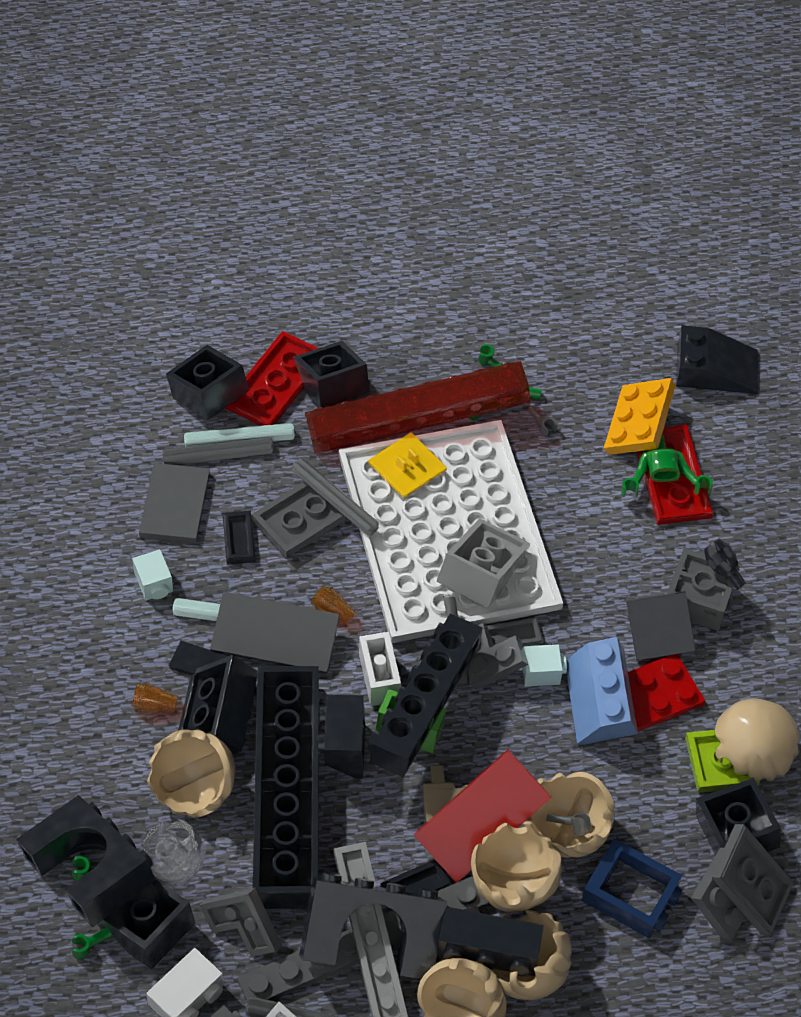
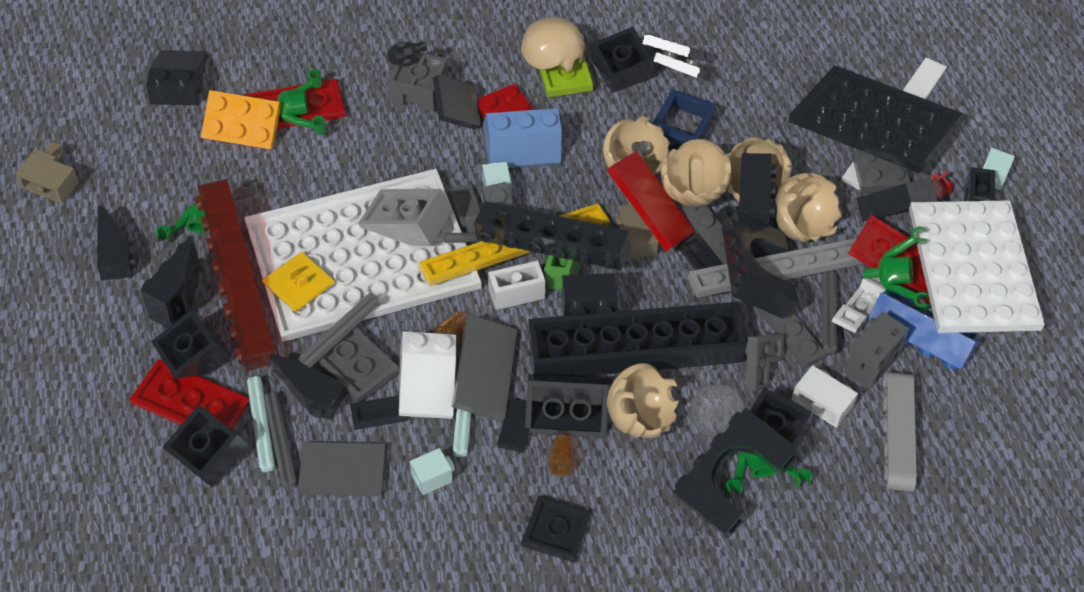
camera: 95 degrees left, 0 degrees up
(69, 689) = (556, 529): none -> black tile
(271, 473) = (313, 389): none -> black slope
(272, 572) = (427, 374): none -> white slope
(403, 355) = (173, 286): none -> black slope
(461, 710) = (486, 254): none -> yellow tile
(468, 311) = (113, 250): none -> black slope
(570, 255) = (46, 175): none -> dark tan hinge

